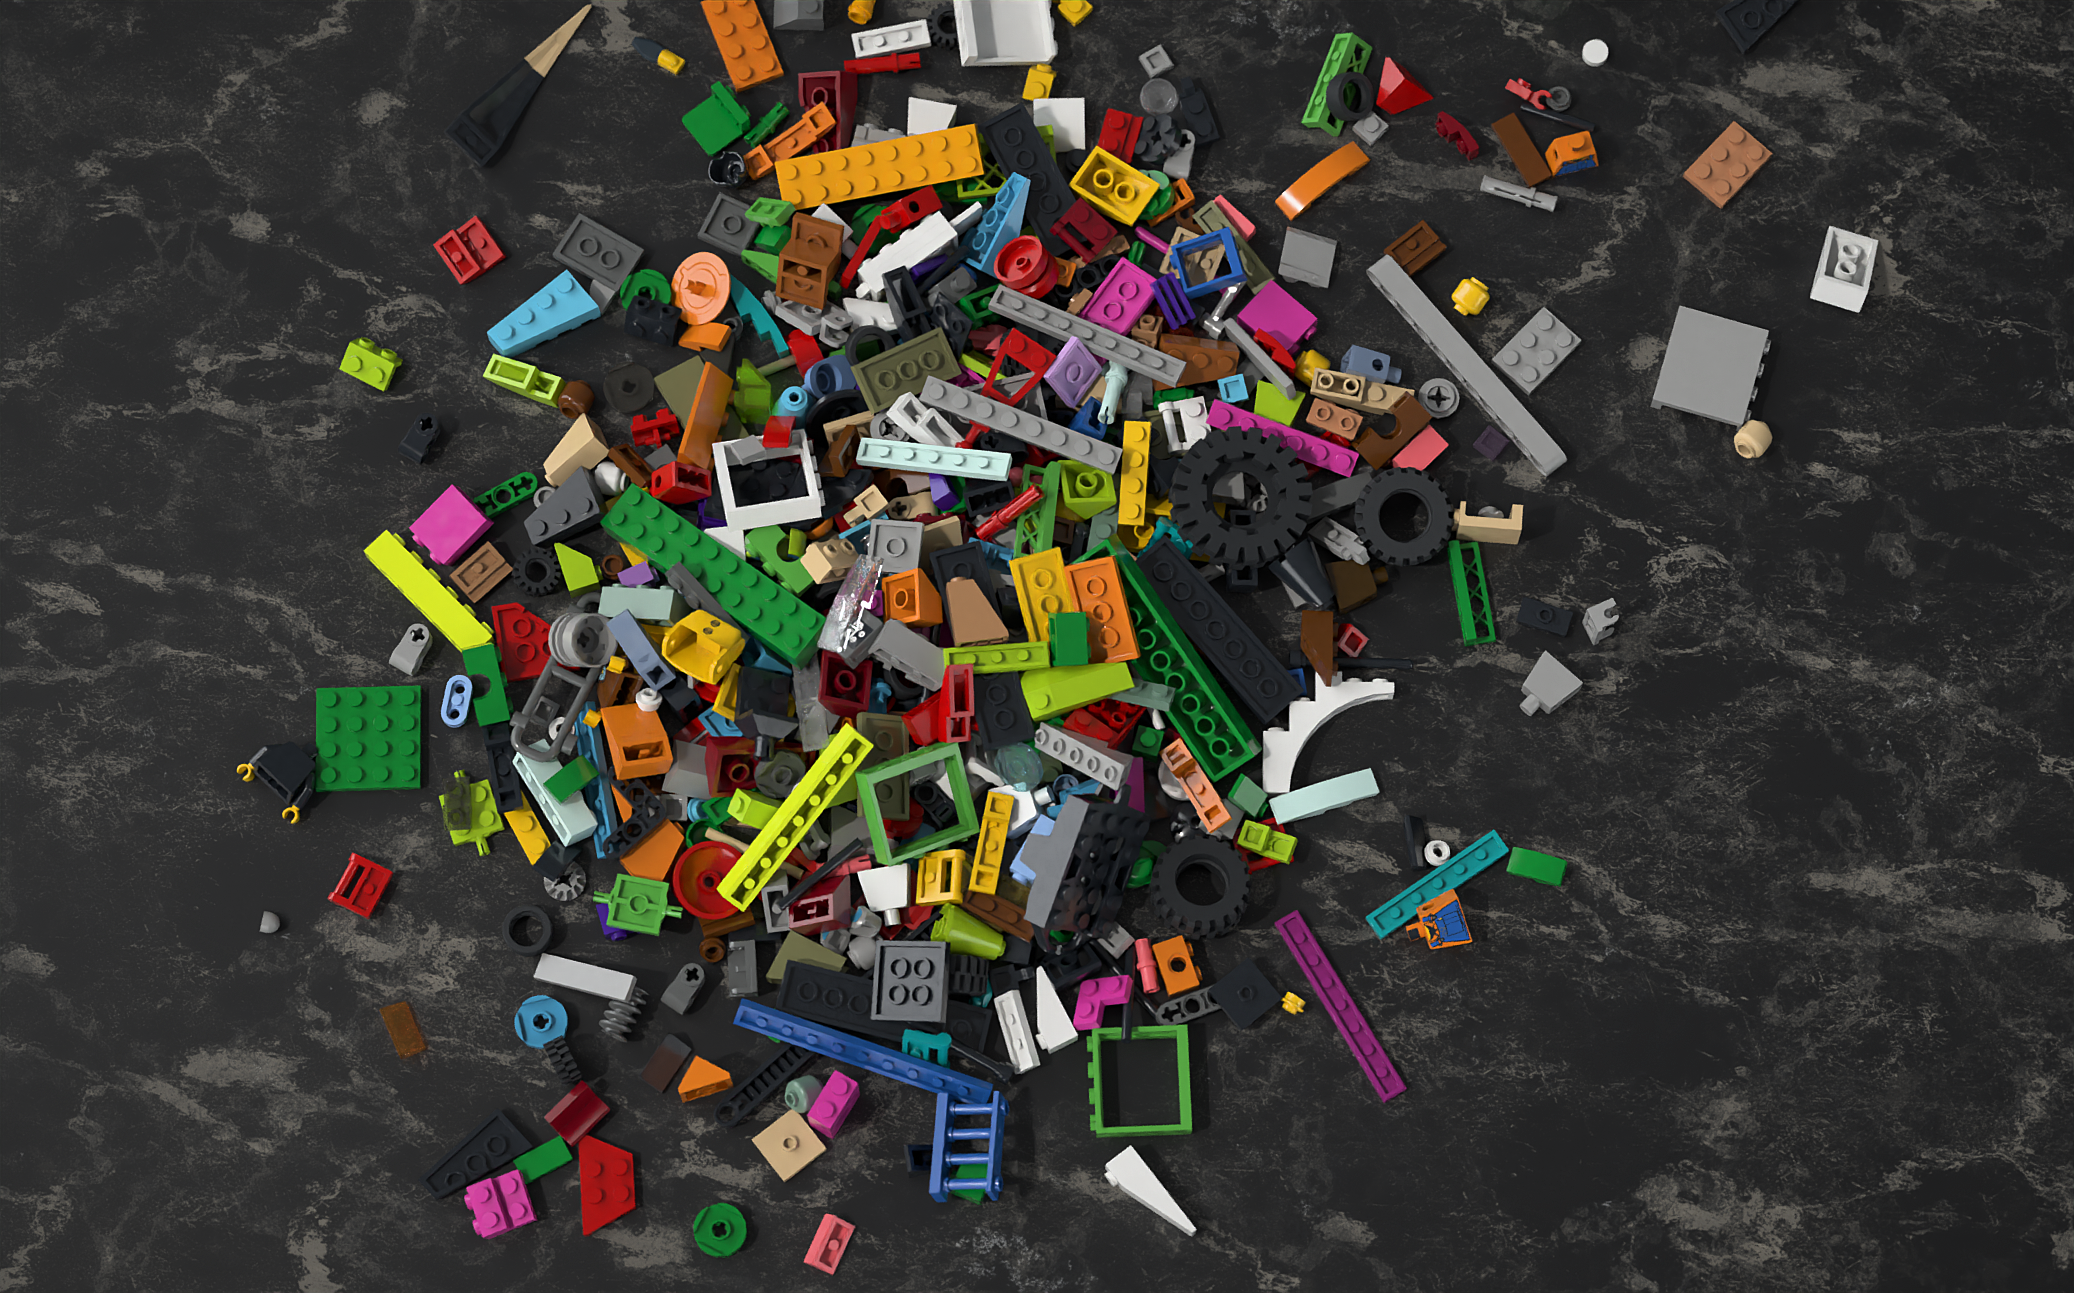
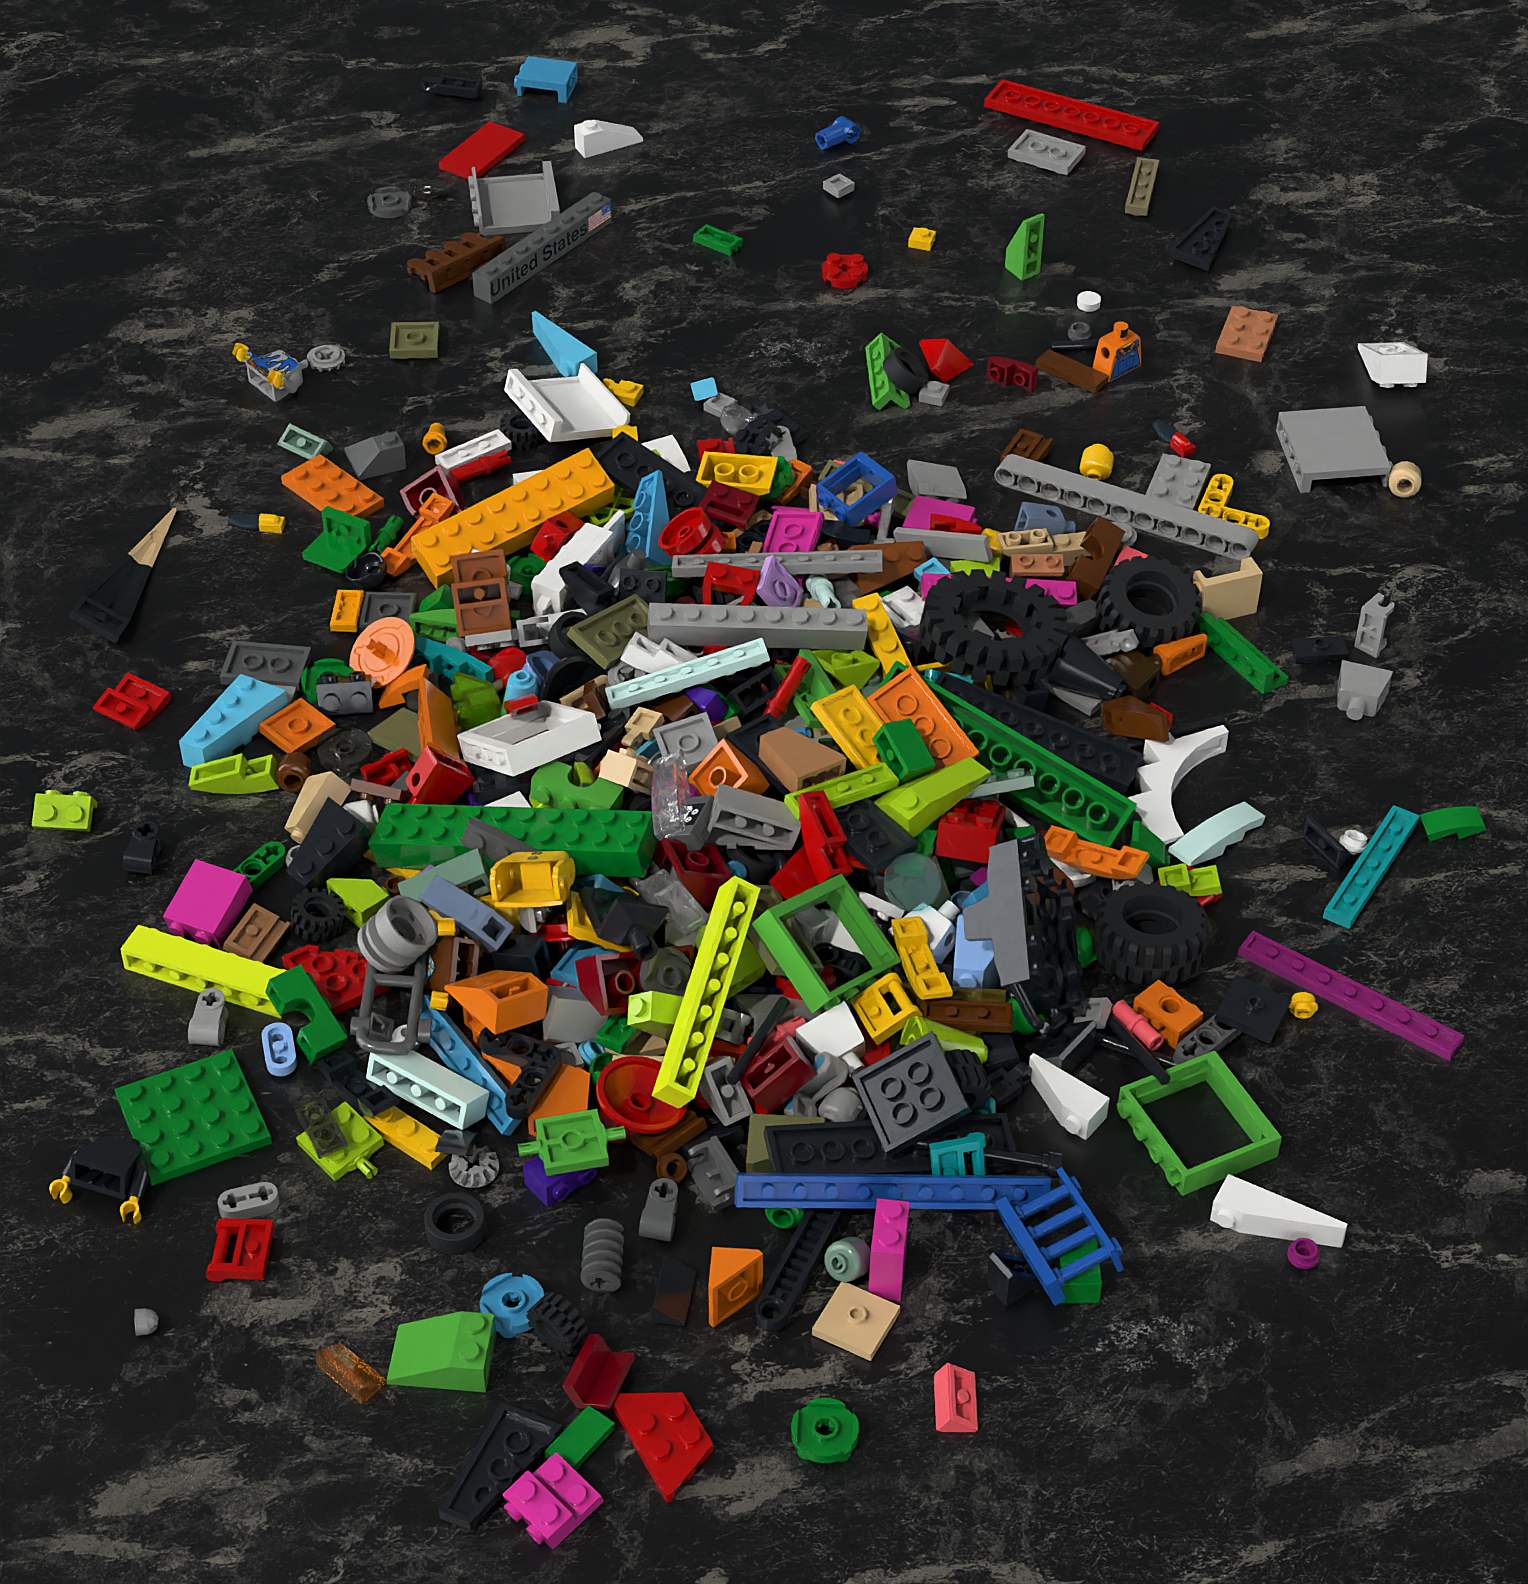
camera: 25 degrees left, 30 degrees down
(382, 847) = (249, 1201): none -> light grey beam
(474, 1044) = (444, 1352): none -> bright green slope
(571, 779) = (440, 1058): green slope -> none
(585, 978) = (544, 1236): tile -> none
(598, 343) = (296, 727): none -> orange plate
(648, 699) = (492, 963): white plate -> none
(694, 211) = (347, 611): none -> light orange plate
(748, 450) = (497, 721): light grey tile -> none
(770, 212) = (420, 581): bright green plate -> none
(861, 253) = (526, 580): red tile -> none
(1016, 1031) = (1041, 1124): white plate -> none
(1085, 754) = (980, 828): light grey slope -> none
(1097, 994) = (1105, 1062): dark pink plate -> none
(1148, 36) = (704, 389): none -> medium azure slope
(1155, 1224) = (1306, 1247): none -> magenta plate
(1182, 319) = (839, 522): dark purple tile -> none
(1320, 179) = (911, 434): orange slope -> none
(1410, 574) = (1180, 652): none -> orange slope
(1441, 922) = (1400, 885): torso -> none
(1491, 443) = (1183, 552): clear purple tile -> none
(1519, 193) = (1085, 394): light grey pin -> none
(1522, 89) = (1047, 332): plate -> none
(1554, 400) = (1219, 510): none -> yellow beam
(1569, 284) = (1174, 438): none -> piece

